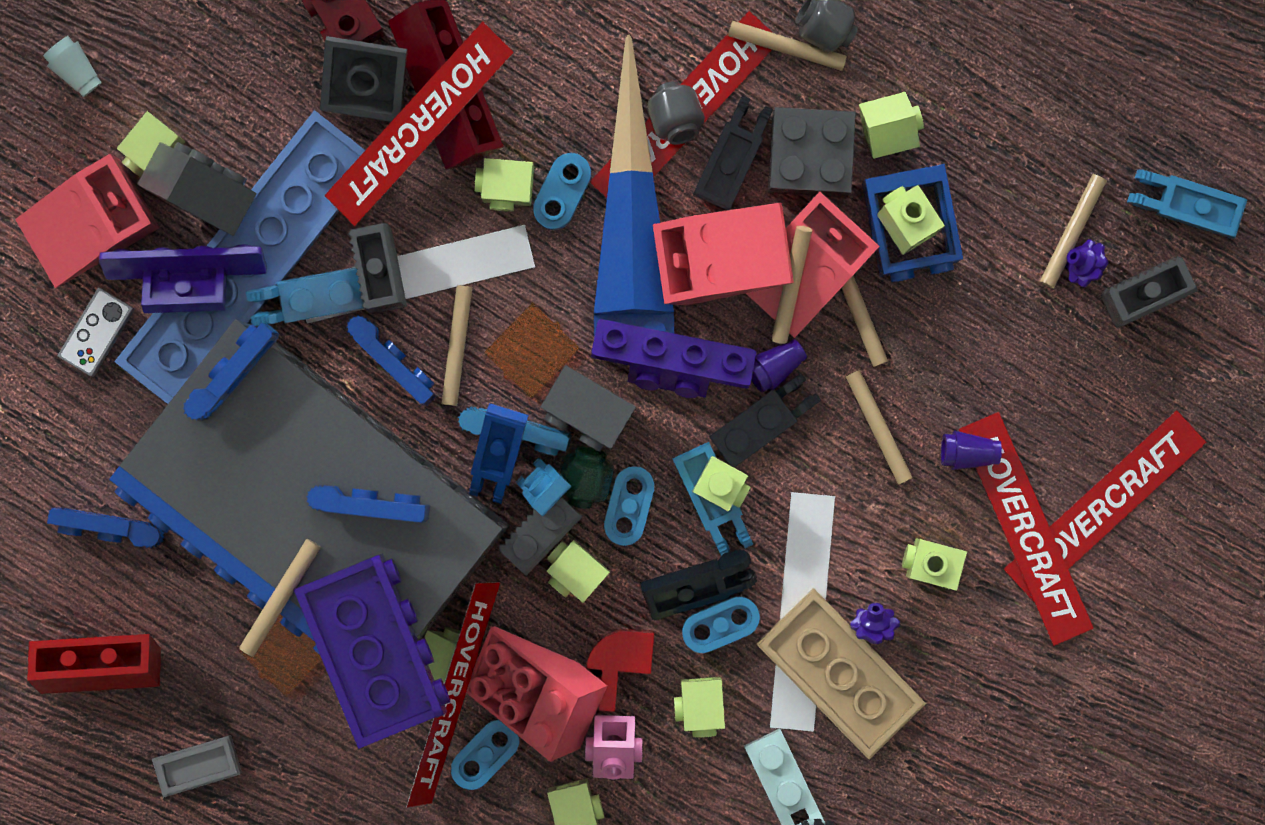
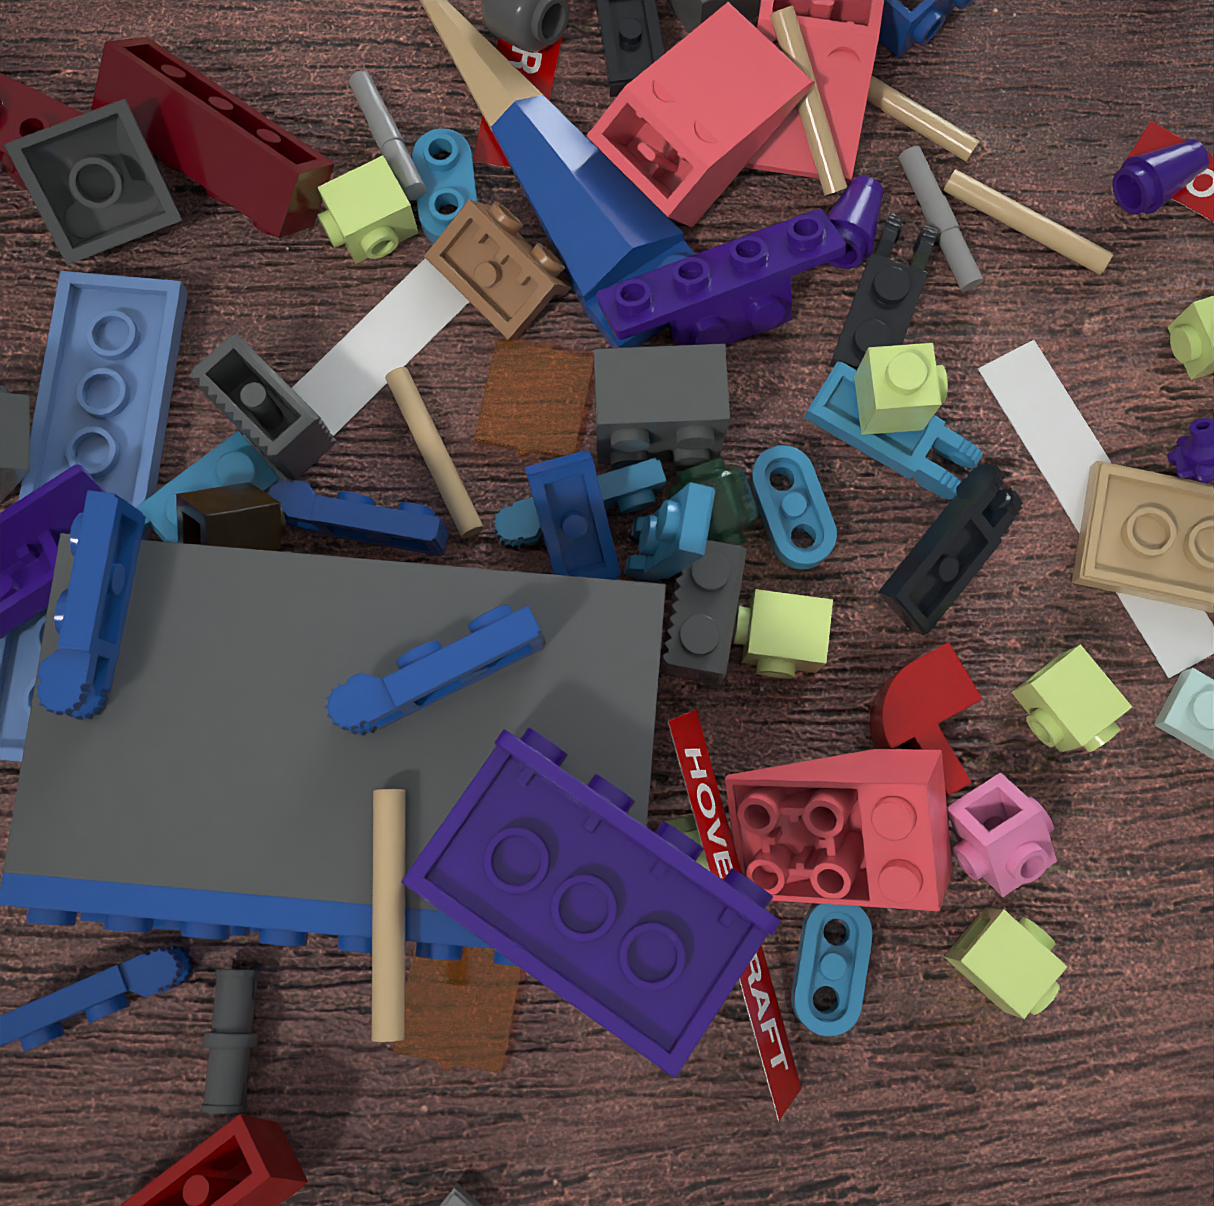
camera: 40 degrees left, 10 degrees down
(161, 592) = (230, 1041): none -> dark grey pin
(318, 332) = (230, 518): none -> dark brown brick
(419, 123) = (201, 187): red sticker -> none
(547, 139) = (387, 135): none -> light grey piece
(559, 263) = (497, 266): none -> medium nougat bracket
(721, 626) = (1014, 585): dark azure plate -> none
(830, 392) = (941, 217): none -> light grey piece

